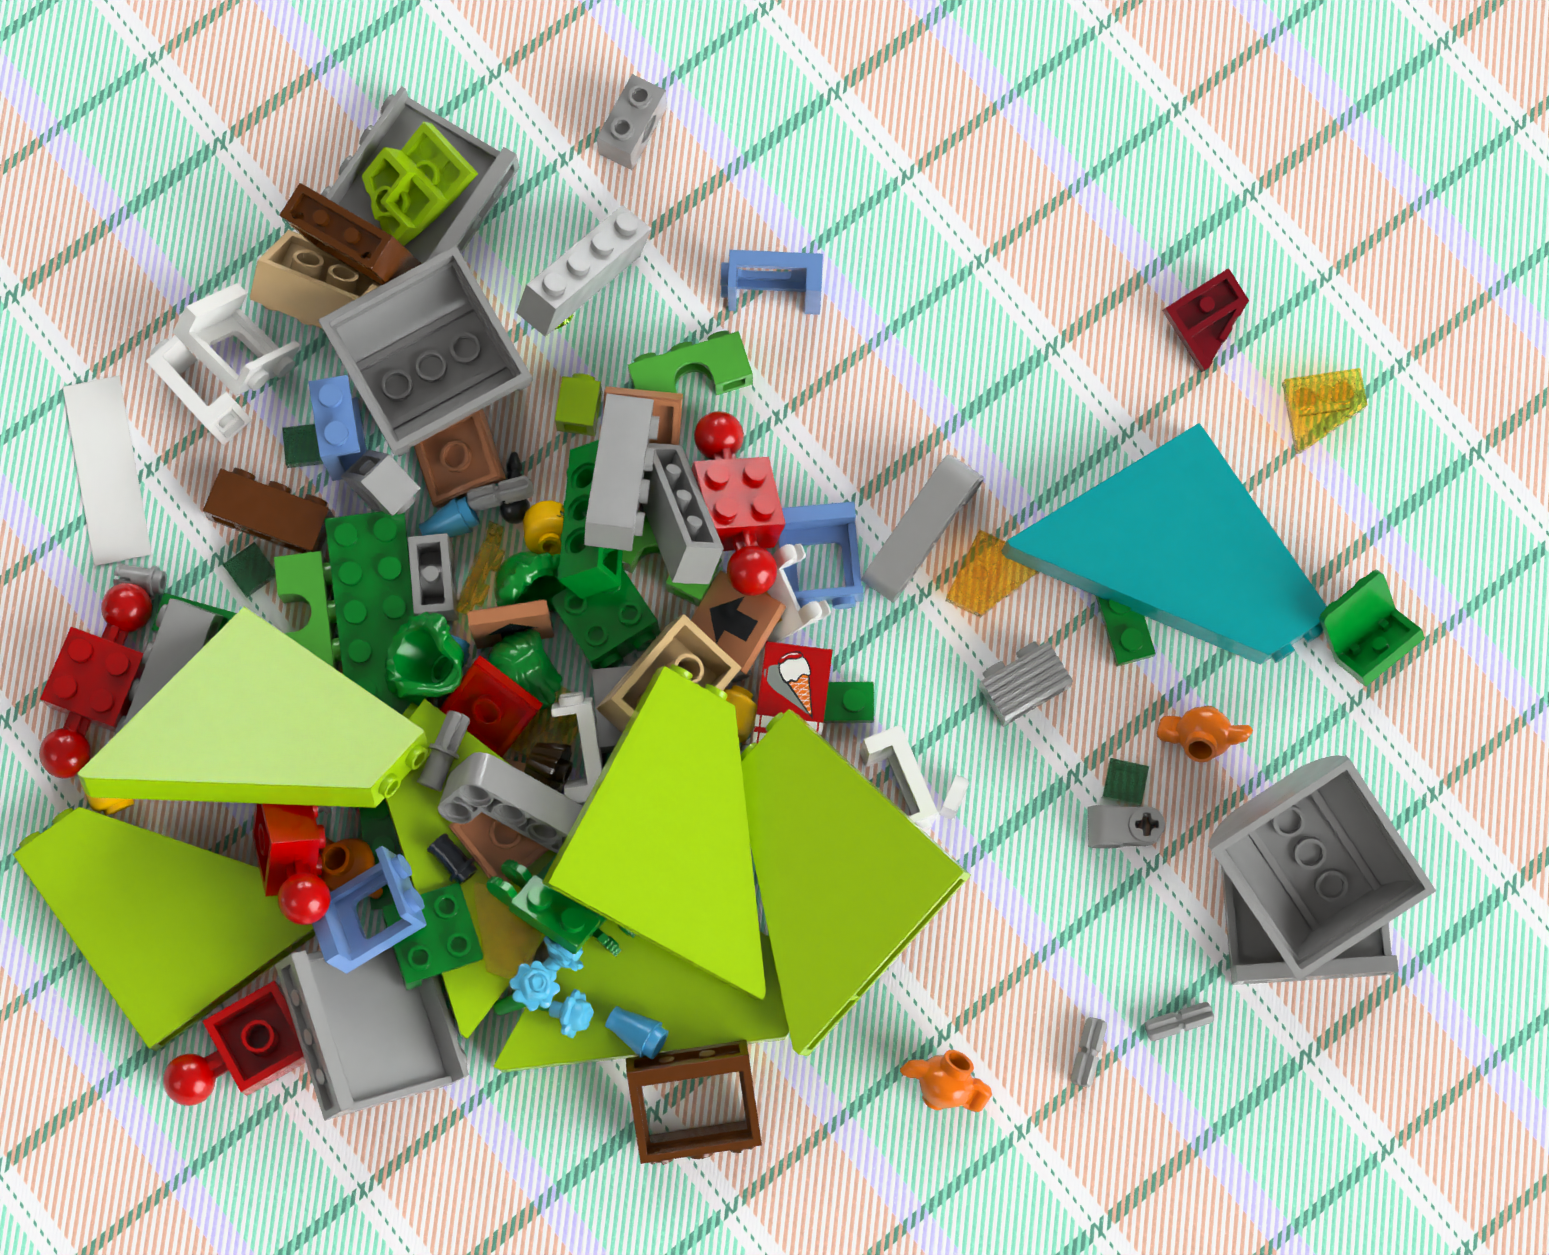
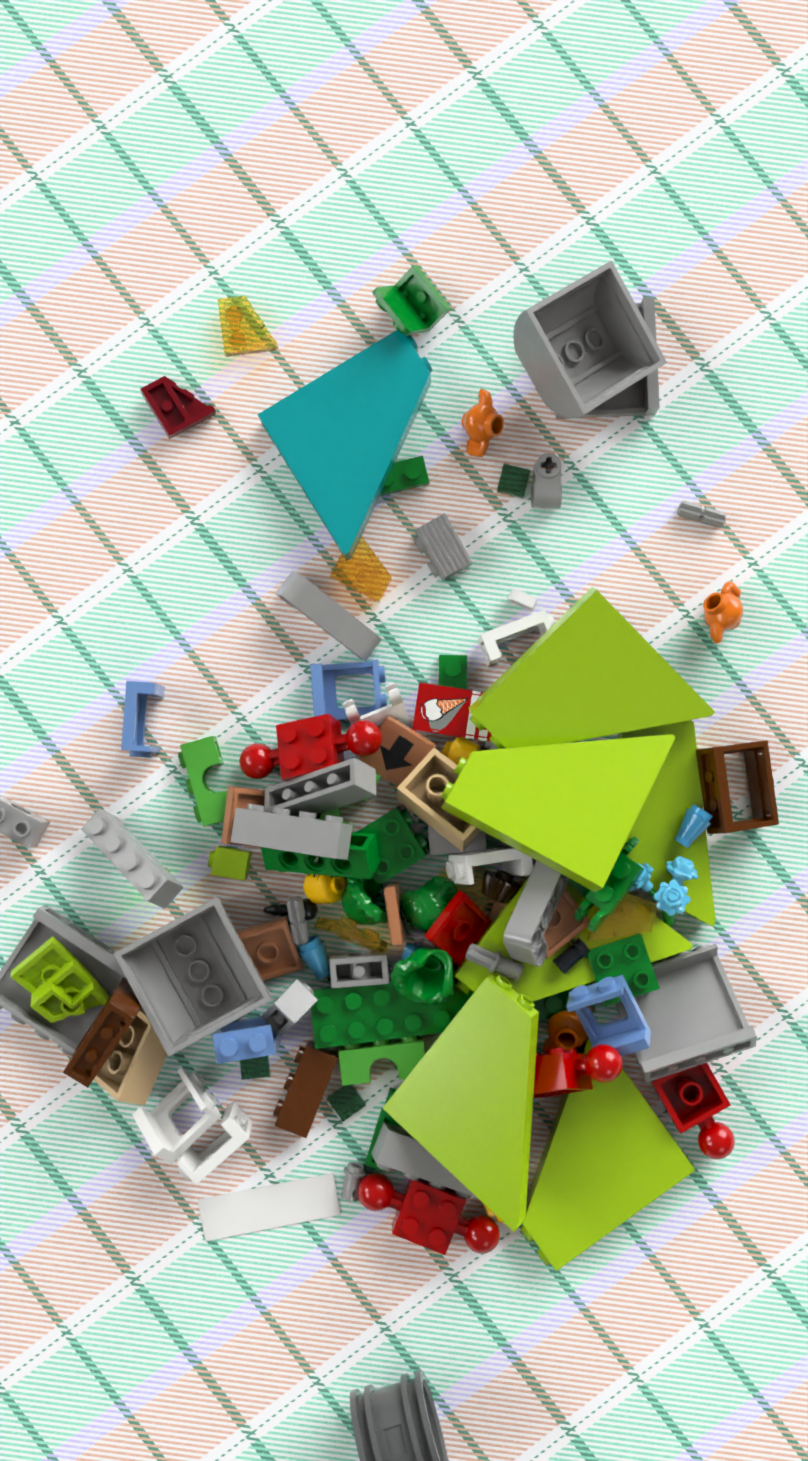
camera: 90 degrees left, 10 degrees up
(1172, 1023) = (679, 446): light grey piece -> none

